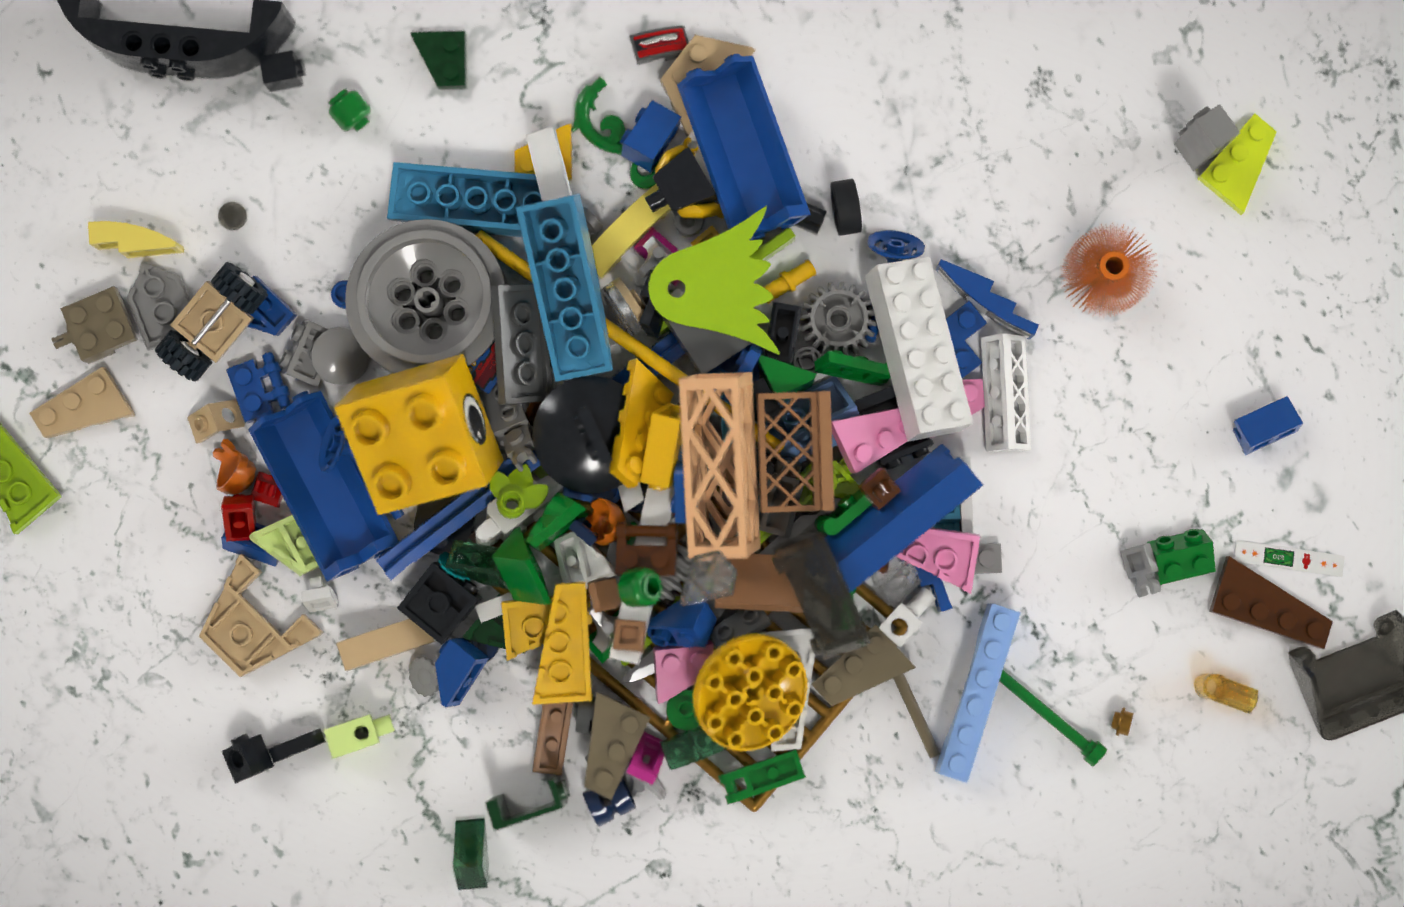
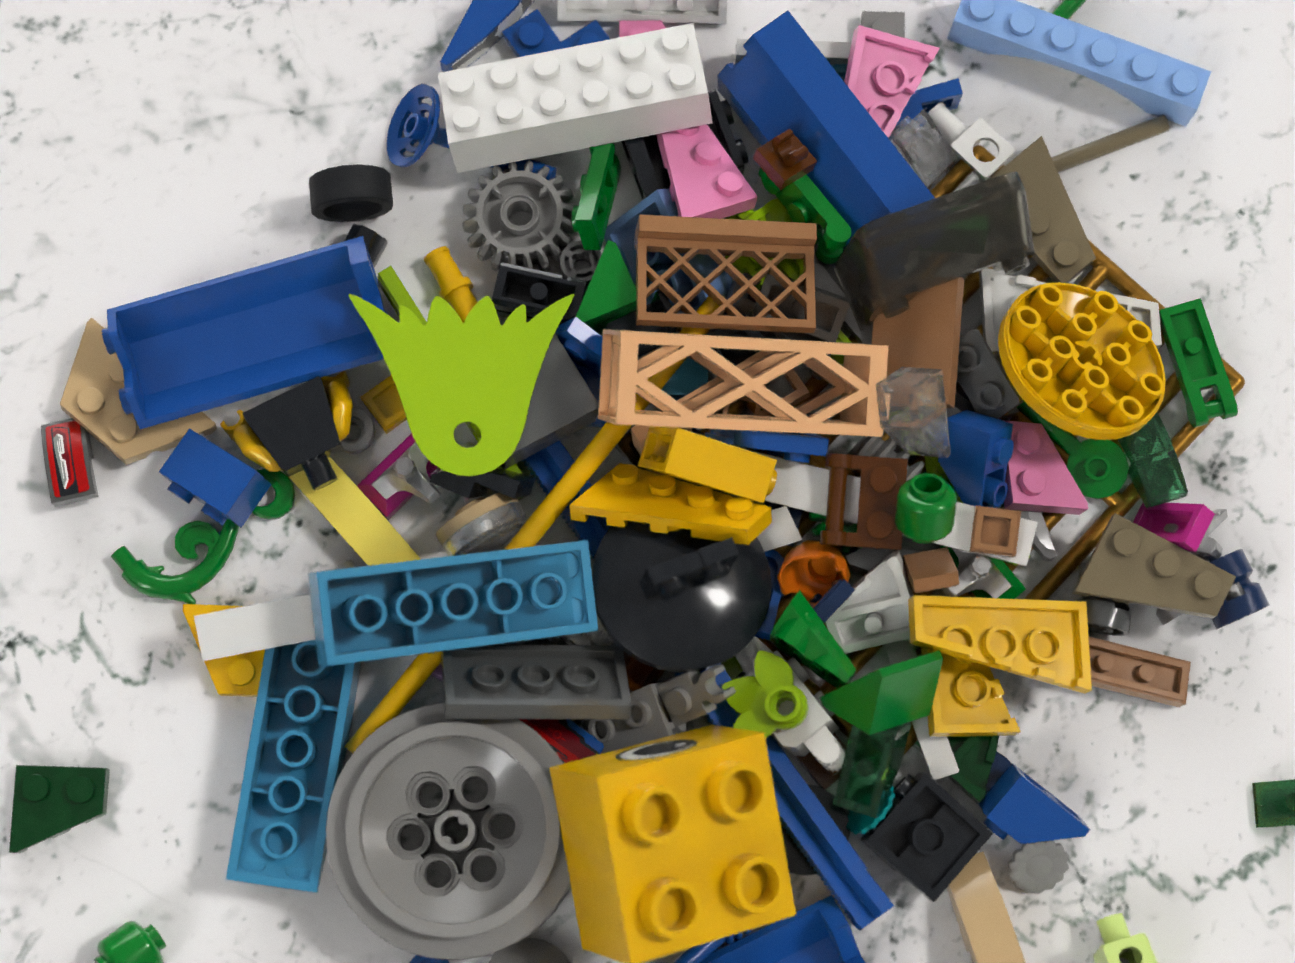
camera: 95 degrees left, 5 degrees down
(500, 814) = (1250, 702): dark green panel -> none

